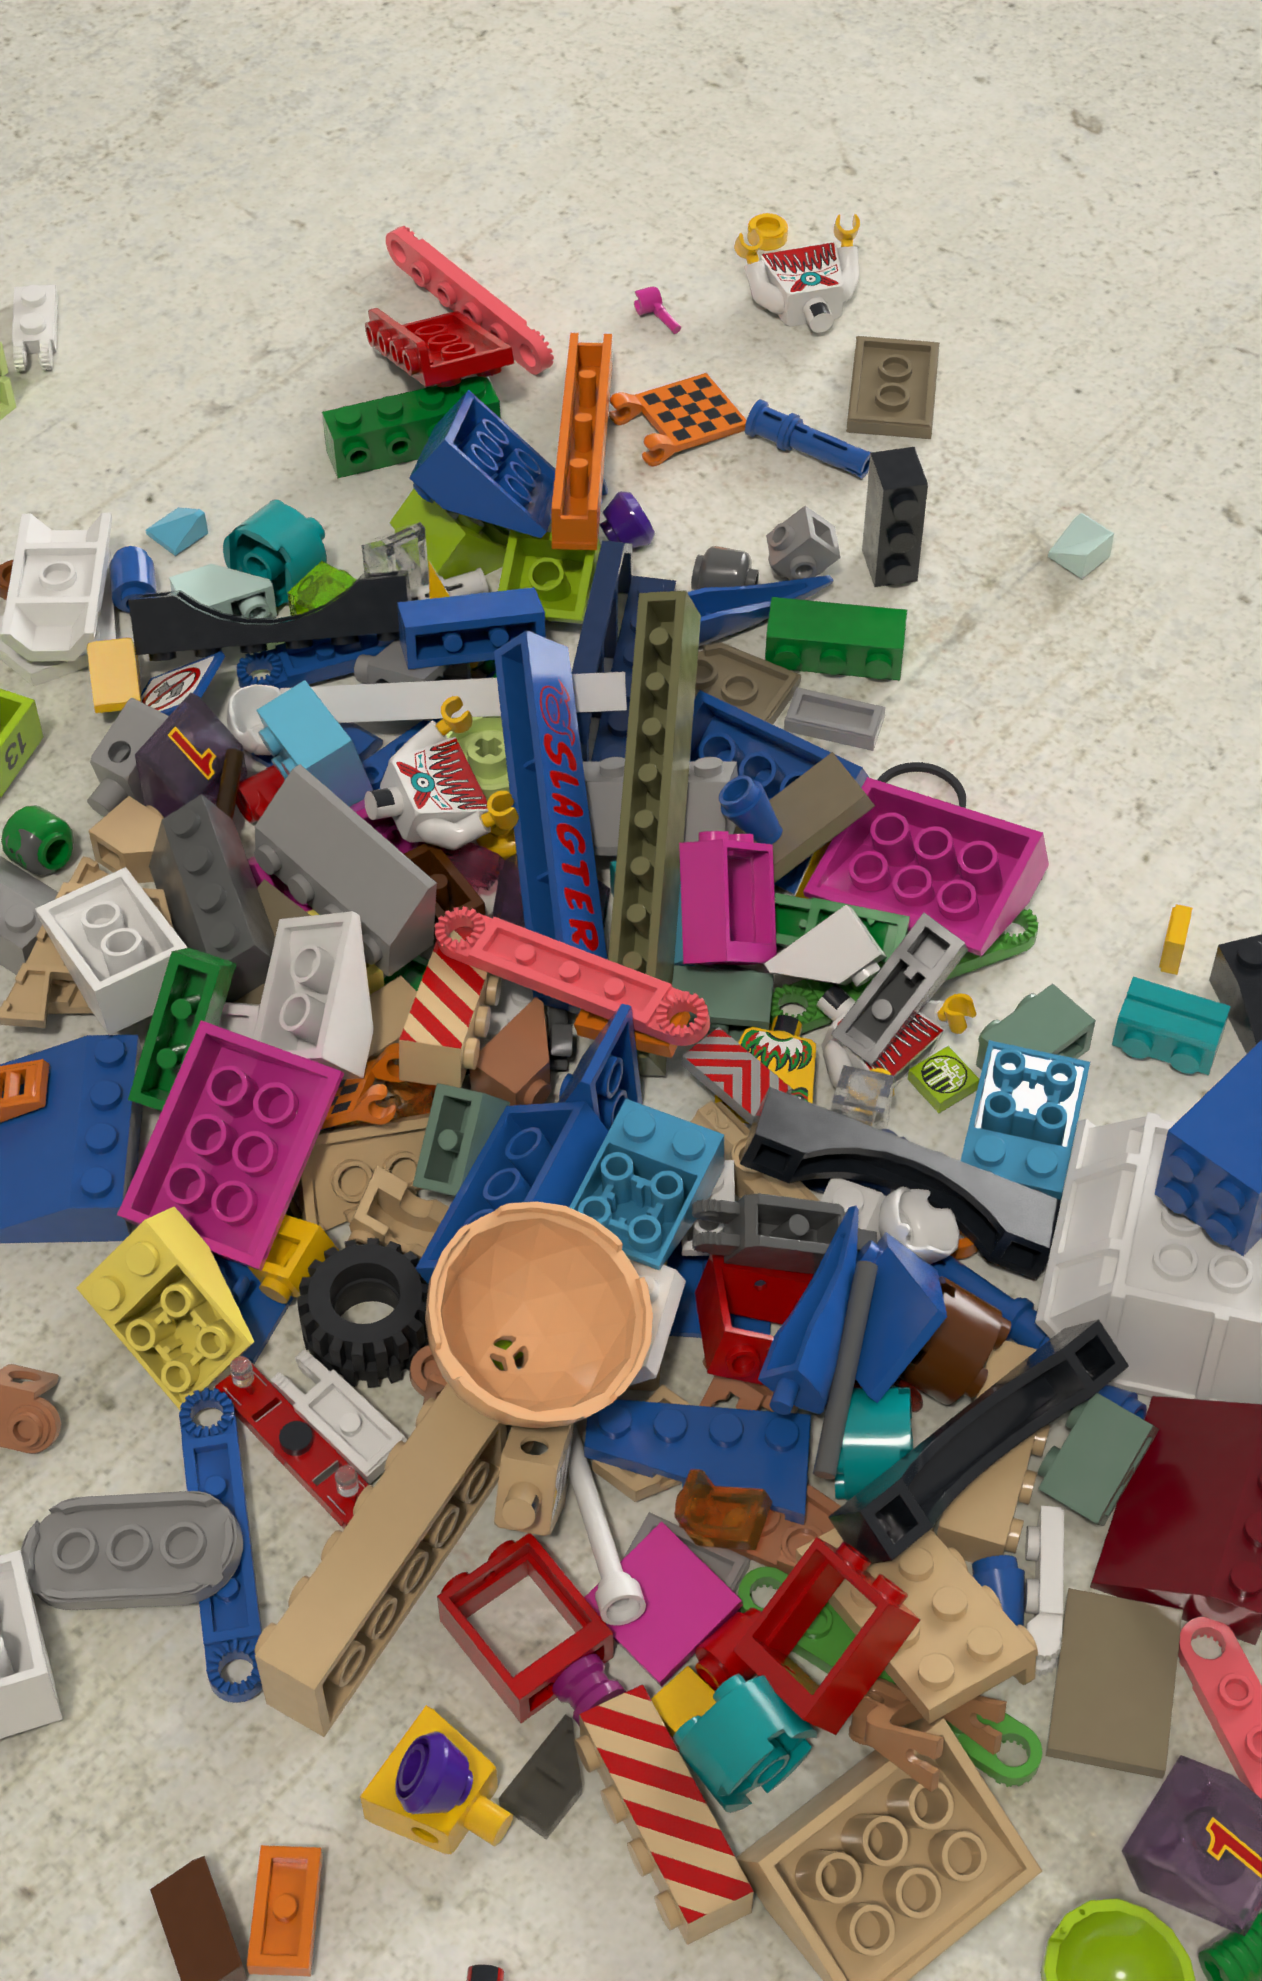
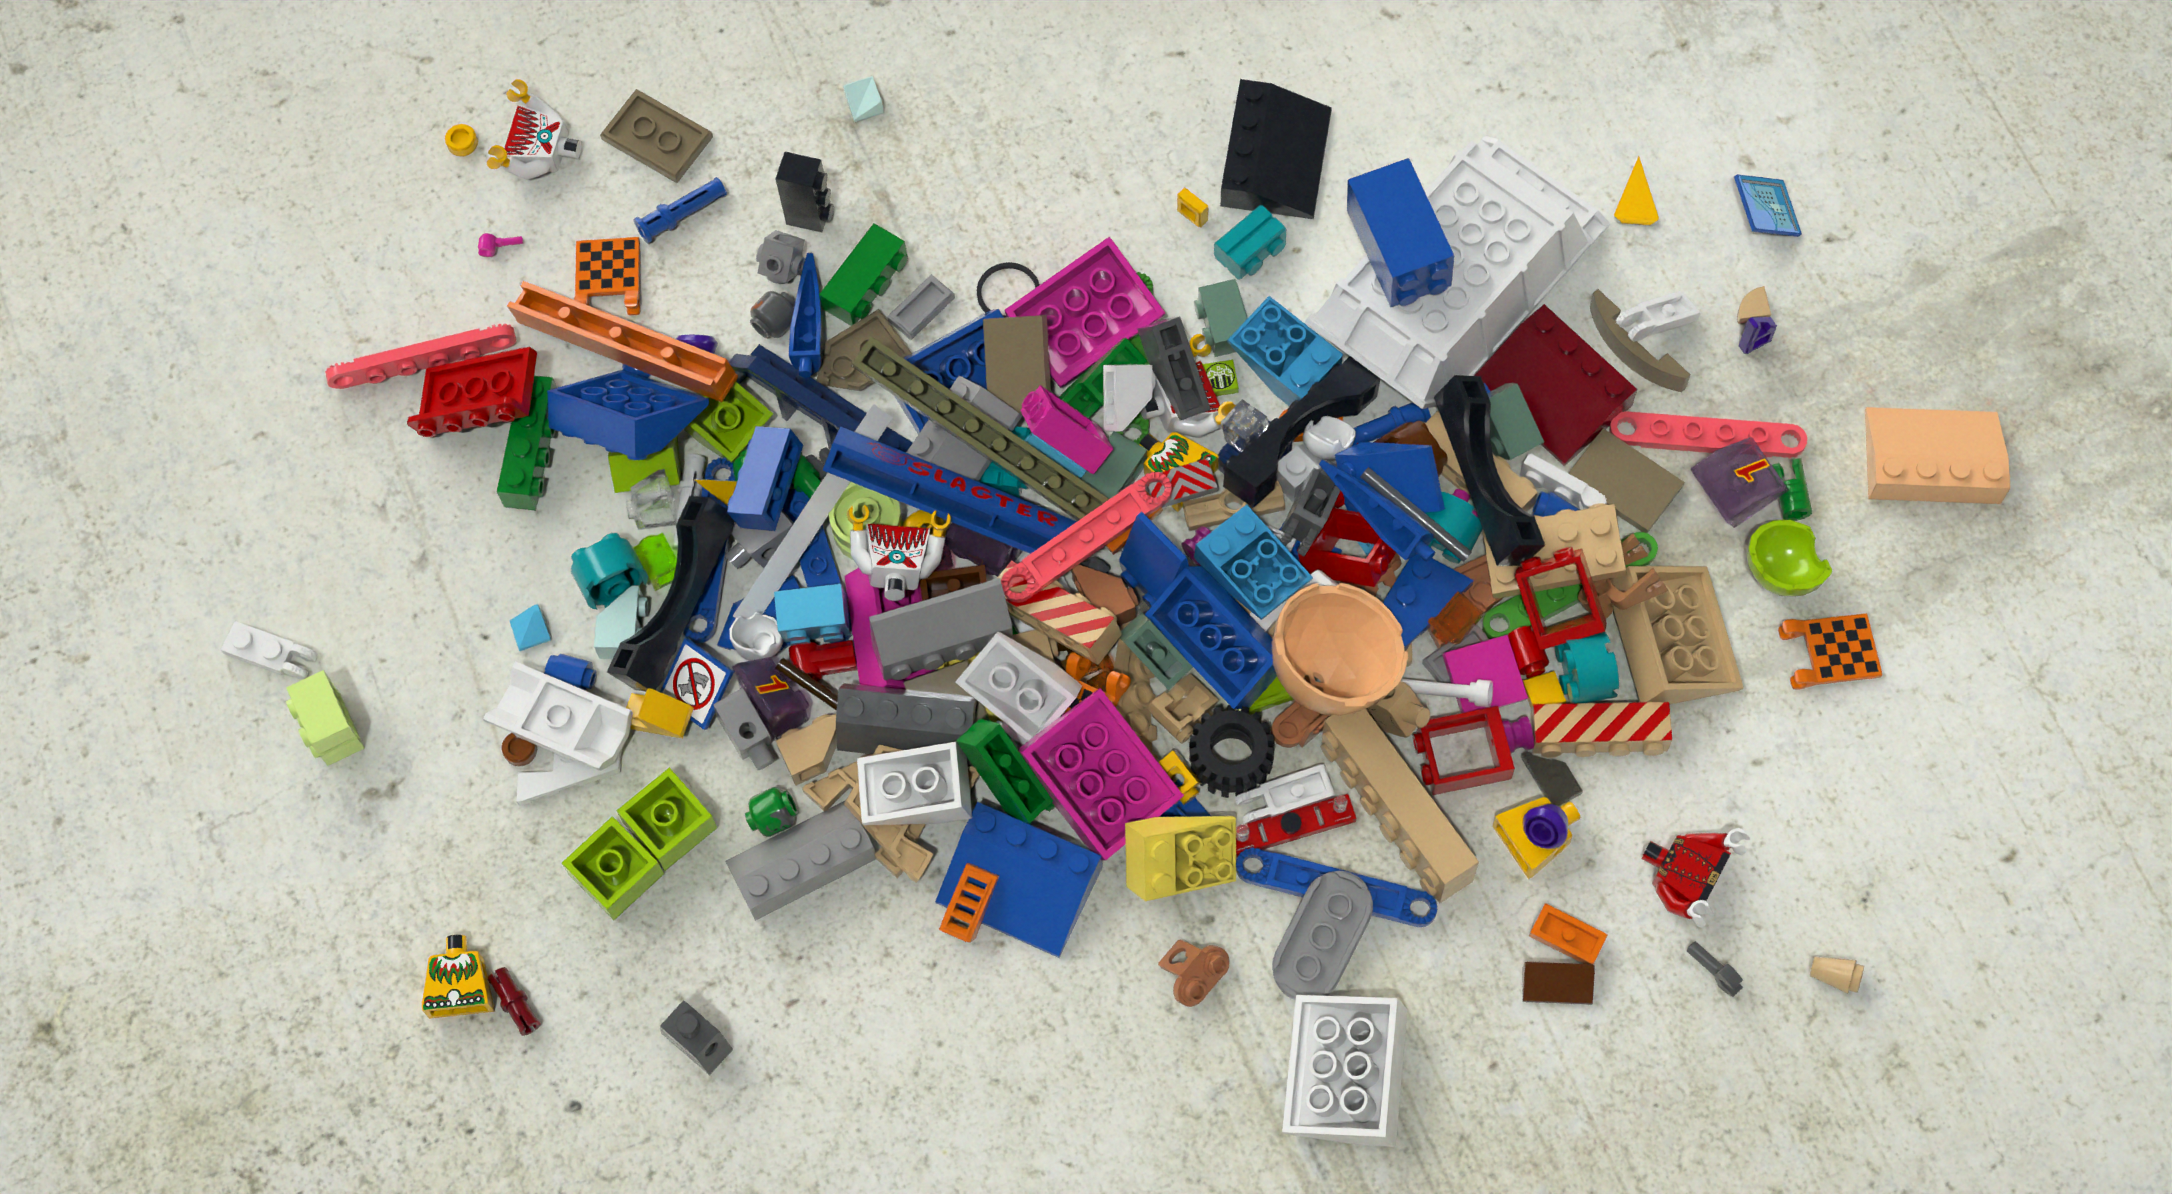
camera: 60 degrees left, 15 degrees up
(749, 808) = (1006, 384): blue cone -> none

